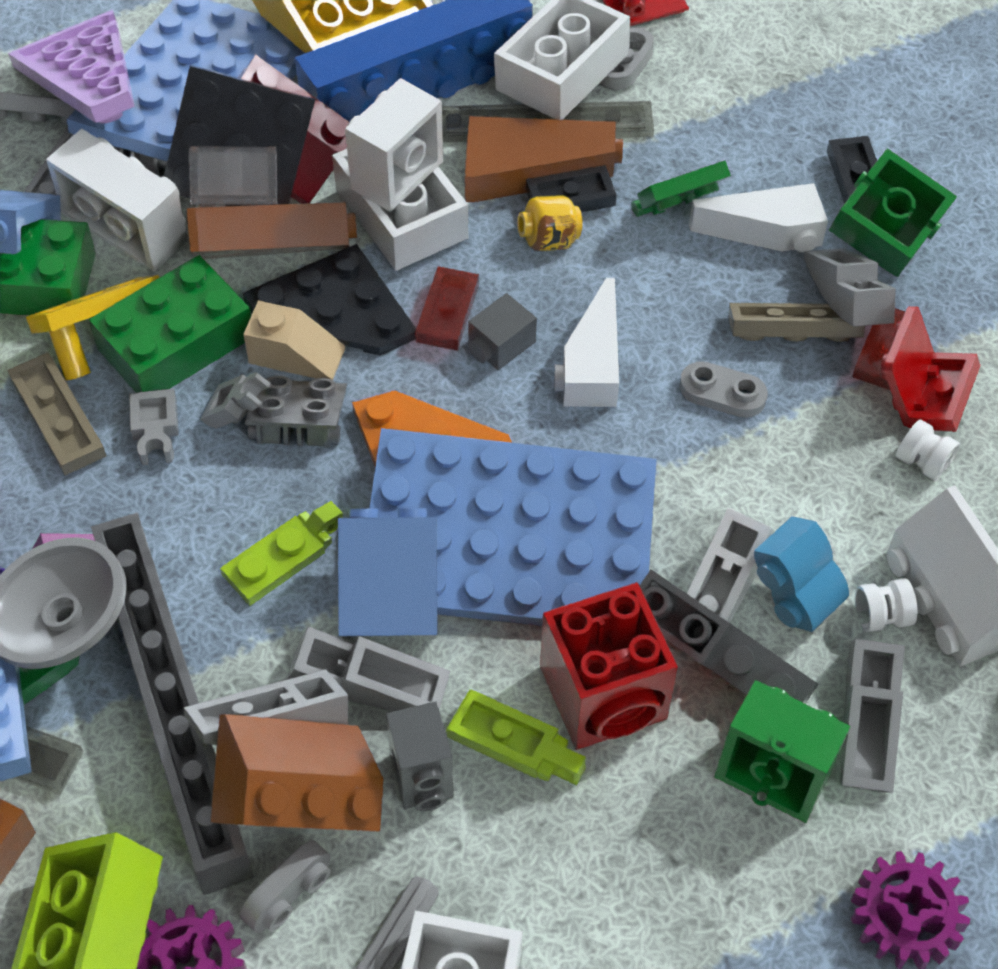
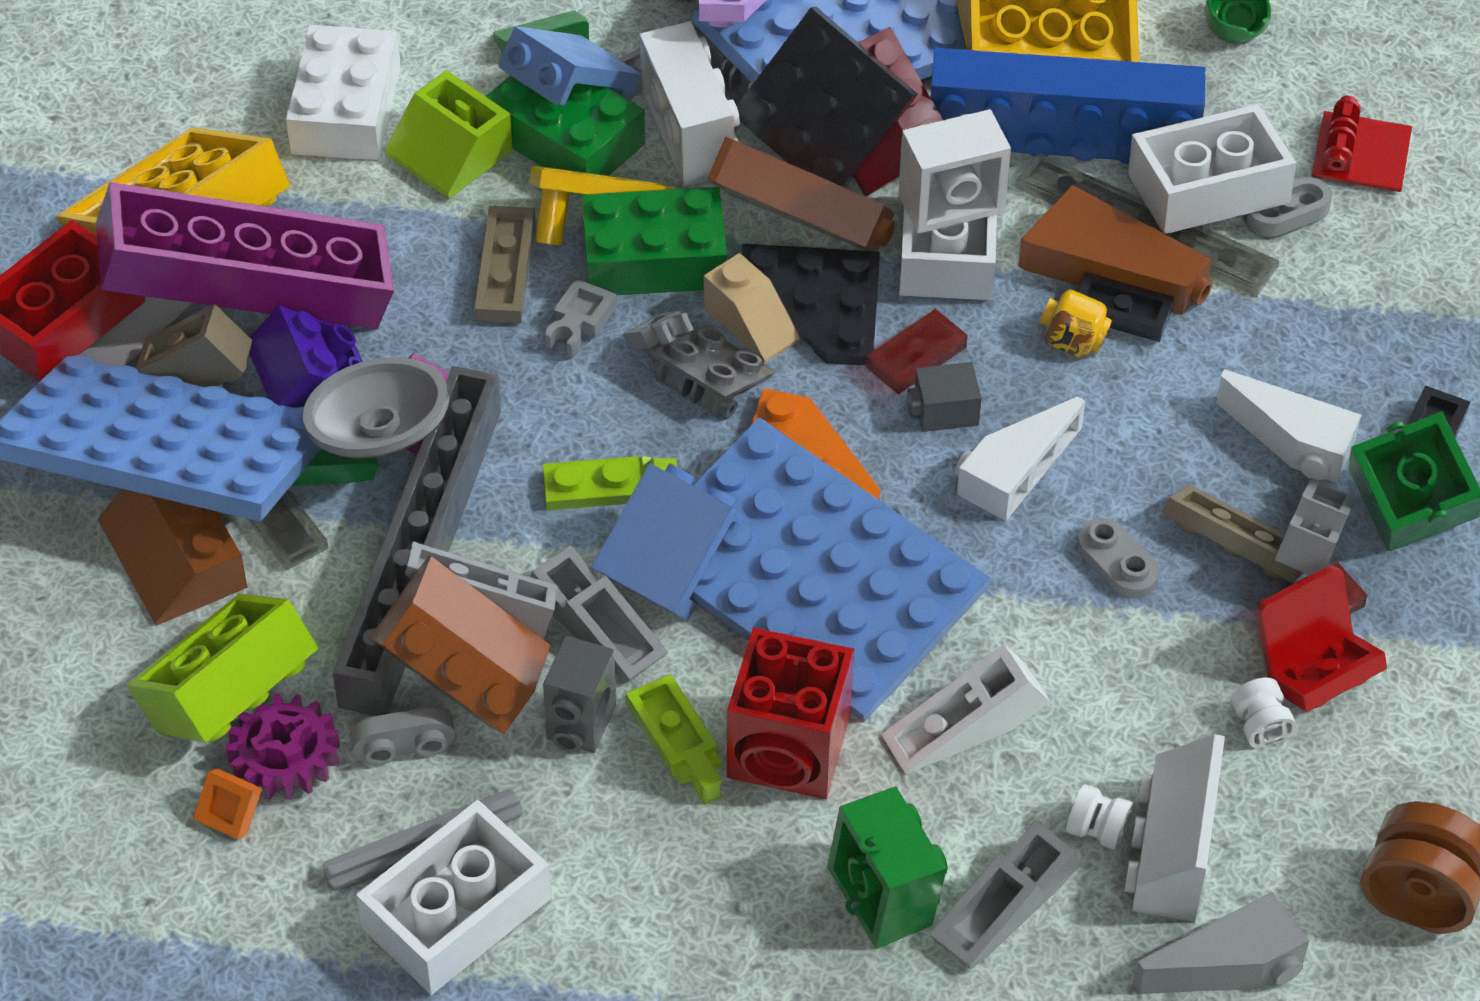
camera: 35 degrees right, 5 degrees down
(232, 175) = (795, 129): clear brick -> none
(686, 187) = (1223, 353): green plate -> none
(719, 643) = (911, 752): dark grey slope -> none
(801, 574) = (1033, 742): dark azure brick -> none

